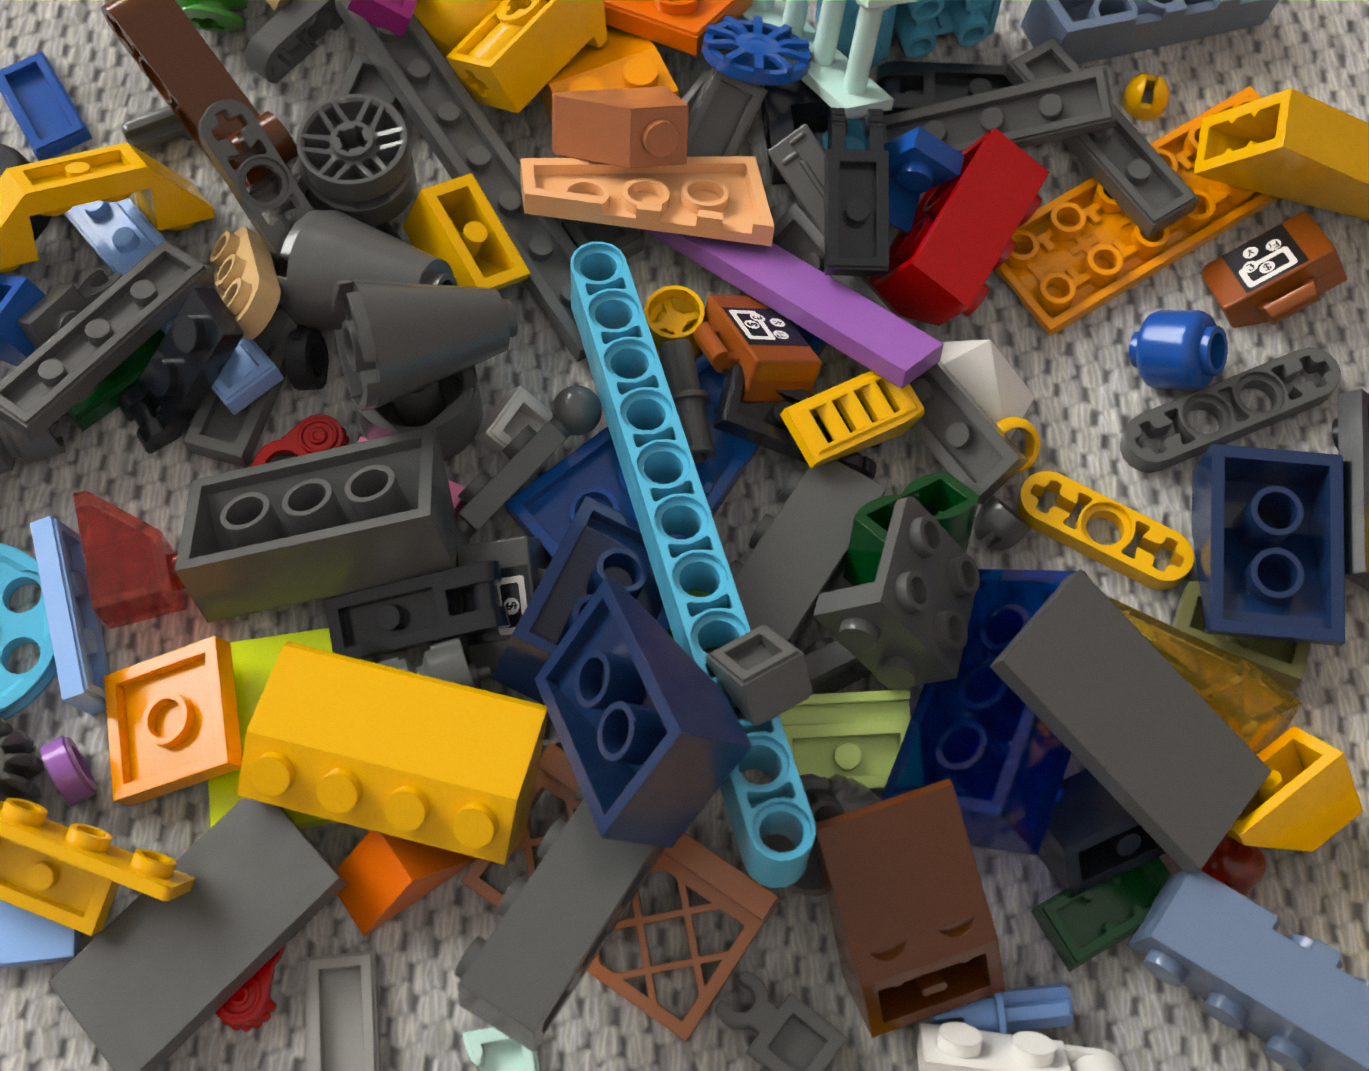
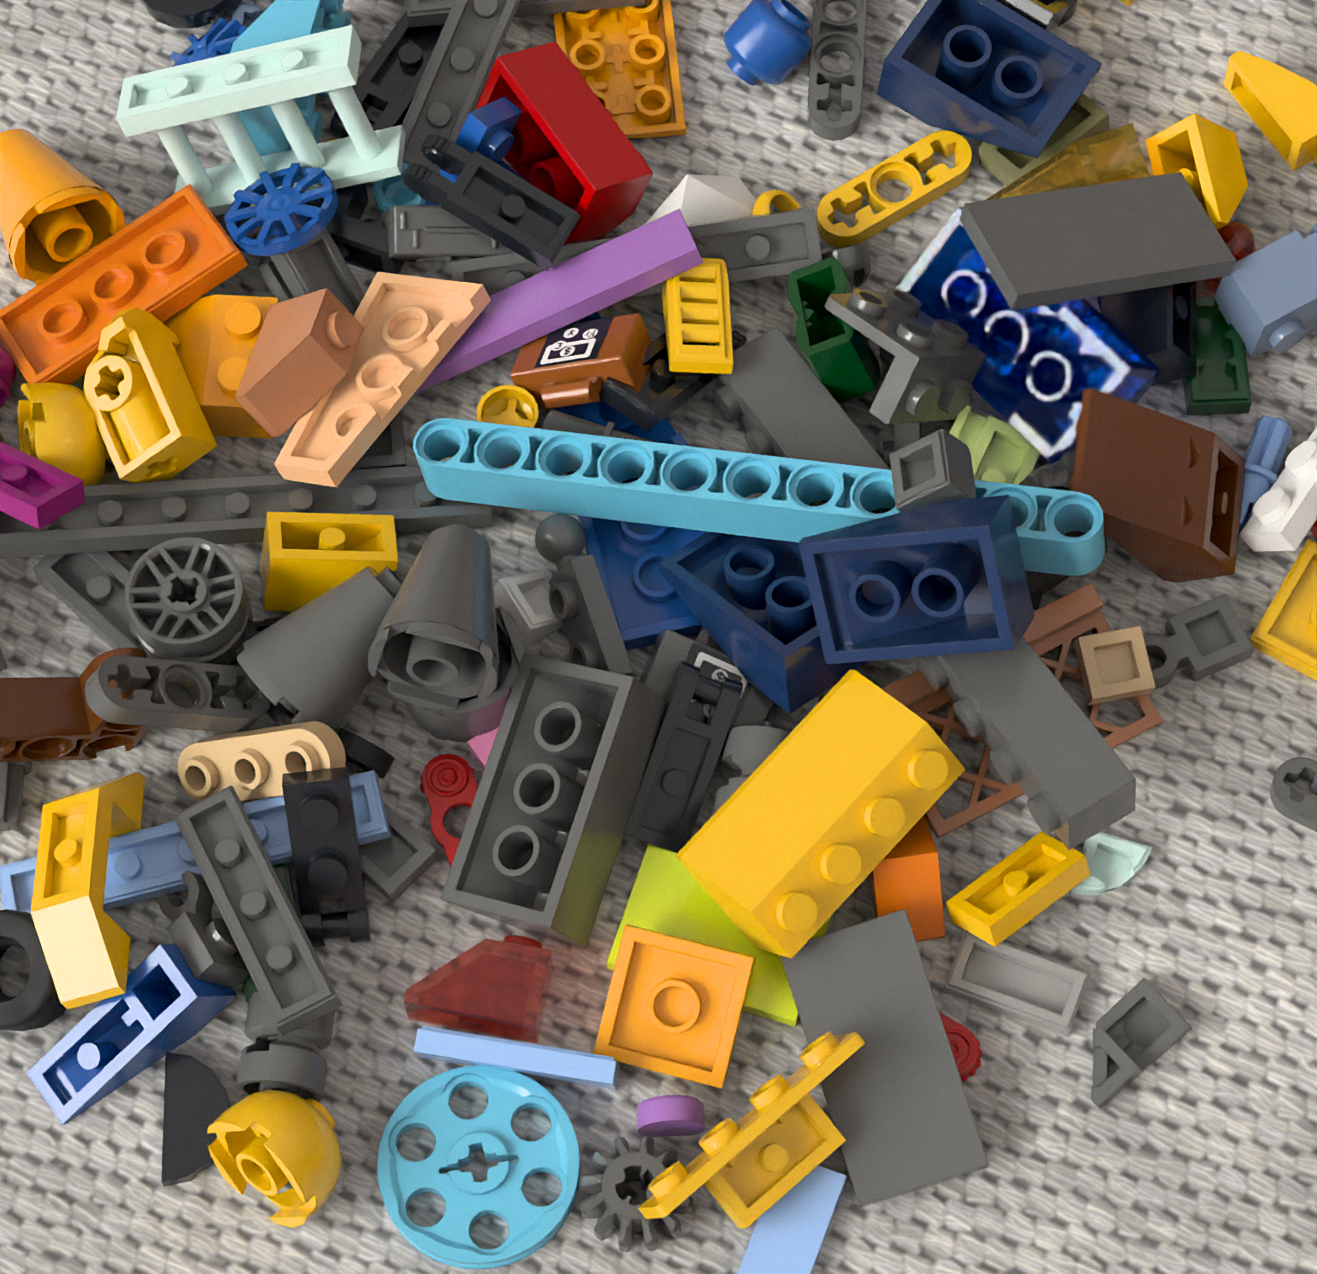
camera: 60 degrees left, 0 degrees up
(415, 977) = (1018, 888): none -> yellow plate
(704, 962) = (1114, 665): none -> tan plate

